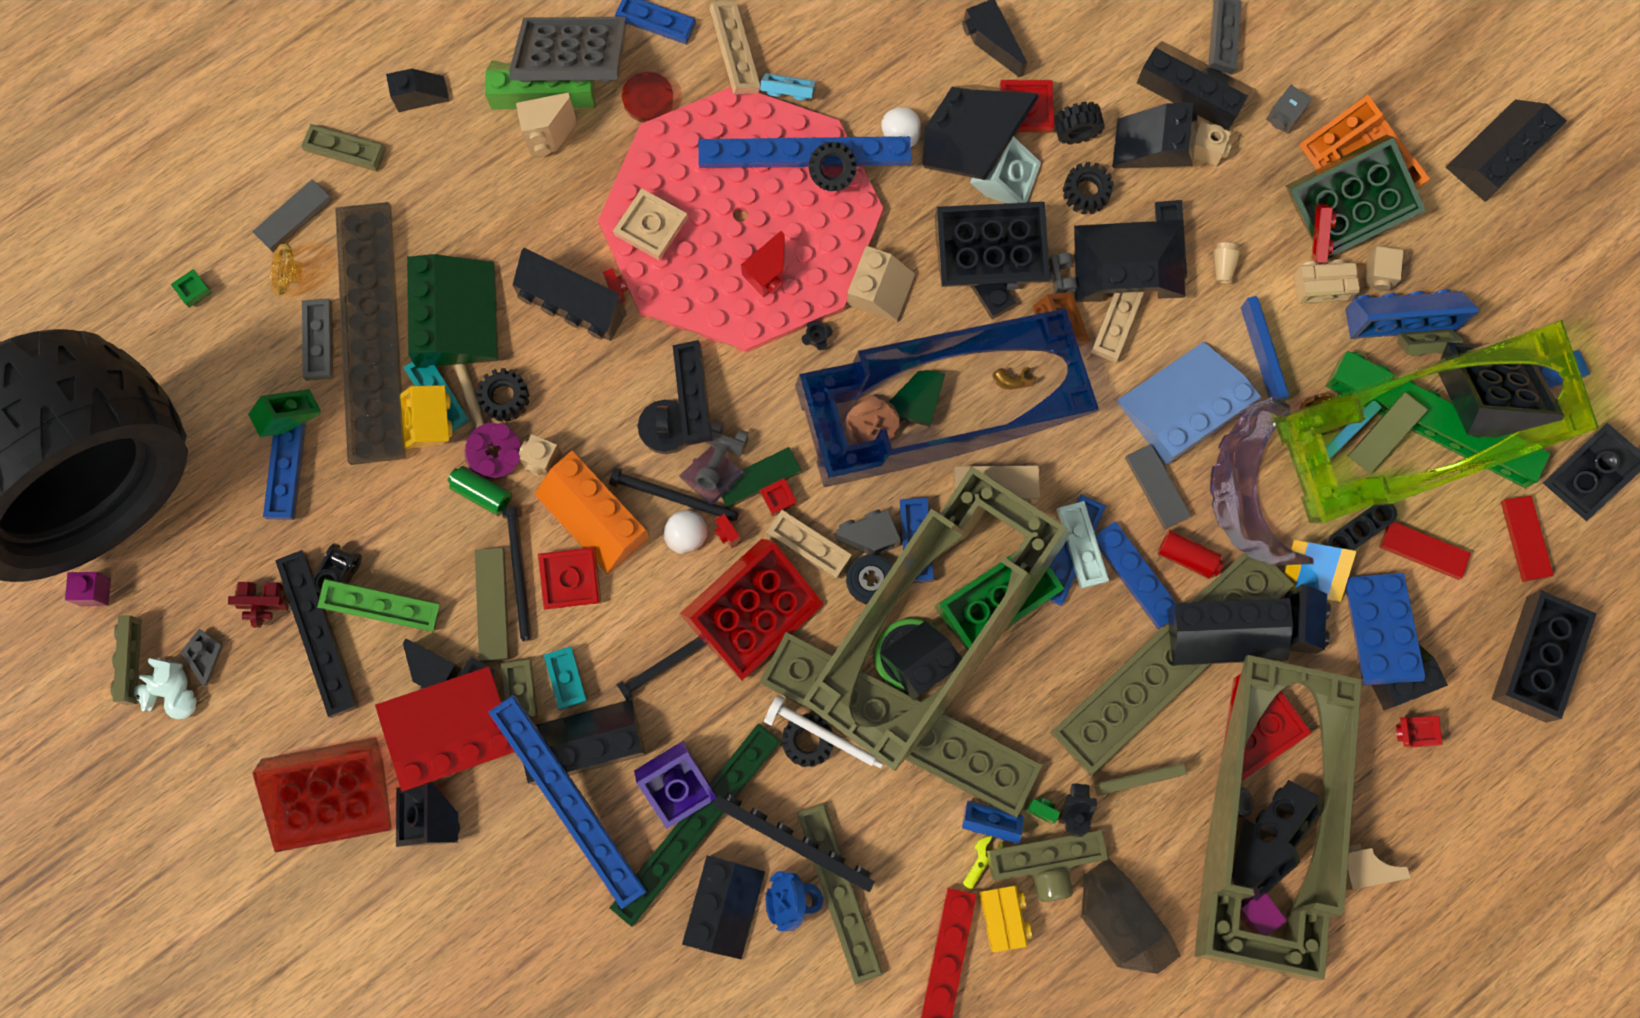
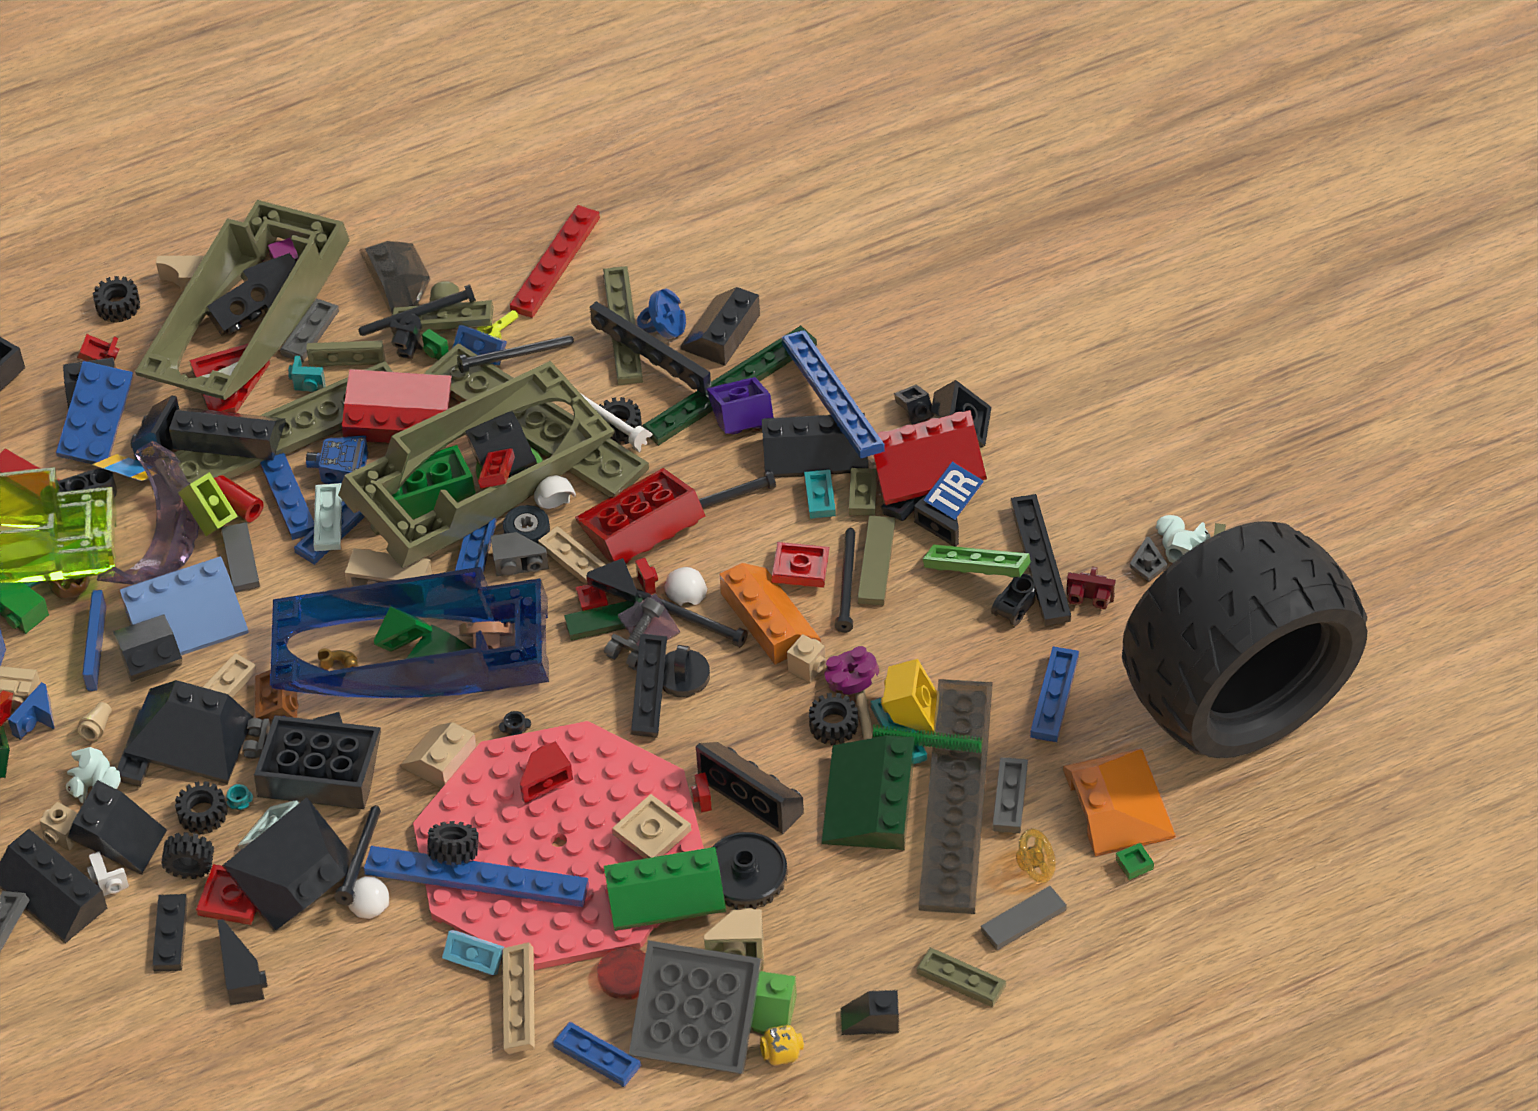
camera: 165 degrees left, 25 degrees down
(213, 359) = (1119, 801): none -> orange slope
(283, 412) = (1045, 719): green slope -> none
(323, 794) = (1046, 446): clear red slope -> none
(401, 376) = (933, 740): none -> green axle
(410, 683) = (953, 490): none -> blue sticker
(479, 490) = (858, 633): green brick -> none
(481, 830) = (915, 402): none -> black bracket
(491, 43) = (781, 1045): none -> yellow head
(558, 214) = (750, 868): none -> black wheel
(625, 164) = (664, 888): none -> green slope
(755, 506) = (614, 579): none -> black slope
(845, 614) = (553, 492): none -> white hair
(910, 598) = (496, 468): none -> red tile
(917, 103) = (345, 894): none -> black bar
(949, 815) = (465, 363): none -> black bar
(953, 409) = (399, 629): none -> green slope
(1005, 919) = (493, 283): yellow brick -> none
(1024, 879) = (420, 310): none -> black bar
(1056, 702) = (390, 402): none -> slope
(1059, 201) = (238, 791): none -> teal plate
(1069, 65) = (170, 932): none -> black plate
(1093, 623) = (339, 458): none -> torso
(1147, 95) = (109, 882): none -> white bracket
(1167, 732) = (306, 378): none -> teal bracket
(1195, 816) = (309, 329): none -> dark grey tile
(1203, 202) = (92, 767): none -> light aqua animal
(1205, 341) = (148, 647): none -> black slope
(1212, 522) = (207, 504): none -> lime brick
(1286, 262) = (35, 708): none -> blue slope
(1449, 816) = (113, 289): none -> black tyre

